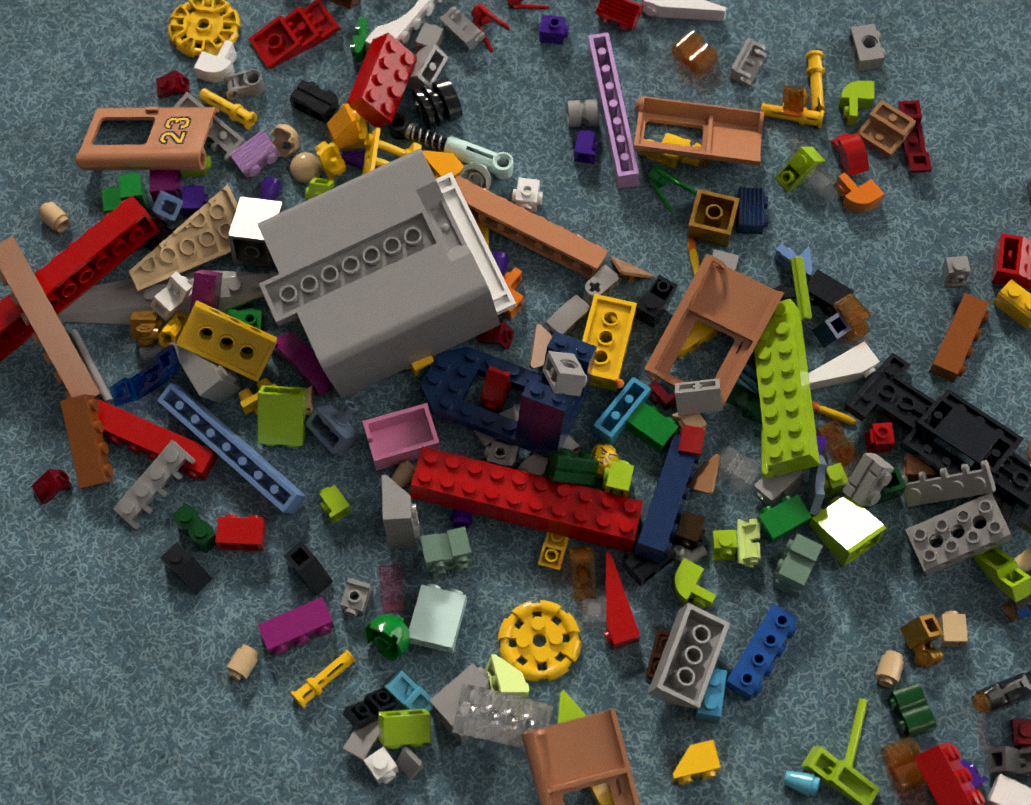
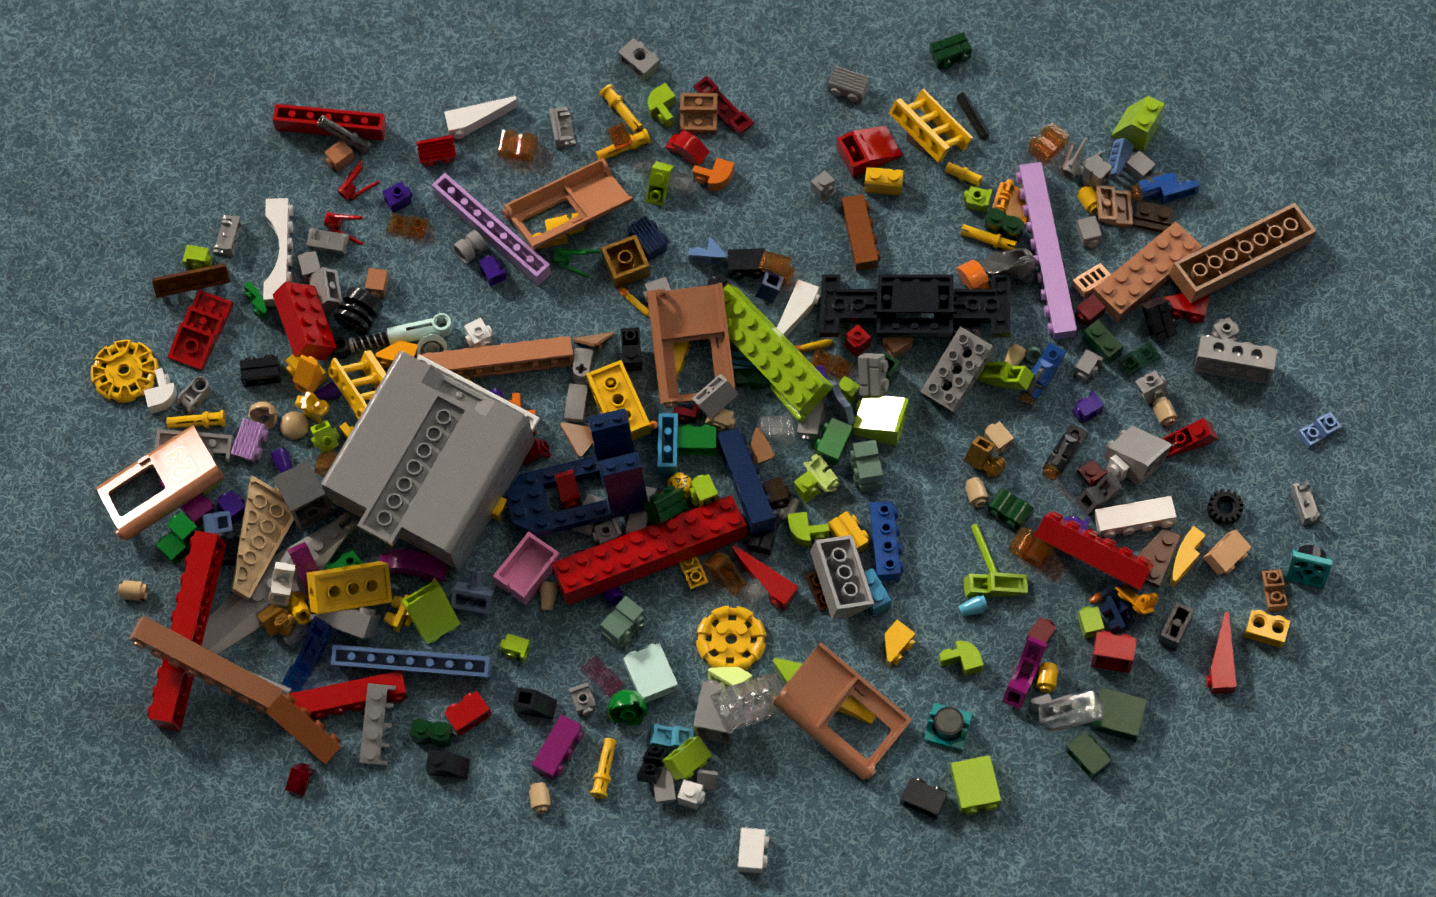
camera: 35 degrees left, 0 degrees up
(171, 84) = (138, 431): dark red bracket -> none
(399, 516) = (573, 619): light grey slope -> none
(475, 91) = (377, 282): none -> nougat brick
(544, 62) = (407, 226): none -> clear orange slope
(564, 373) = (619, 441): light grey brick -> none
(691, 440) = (732, 429): red slope -> none
(733, 610) = (848, 525): none -> yellow brick
(801, 287) = (726, 270): lime axle -> none
(949, 486) = (929, 341): light grey hinge -> none

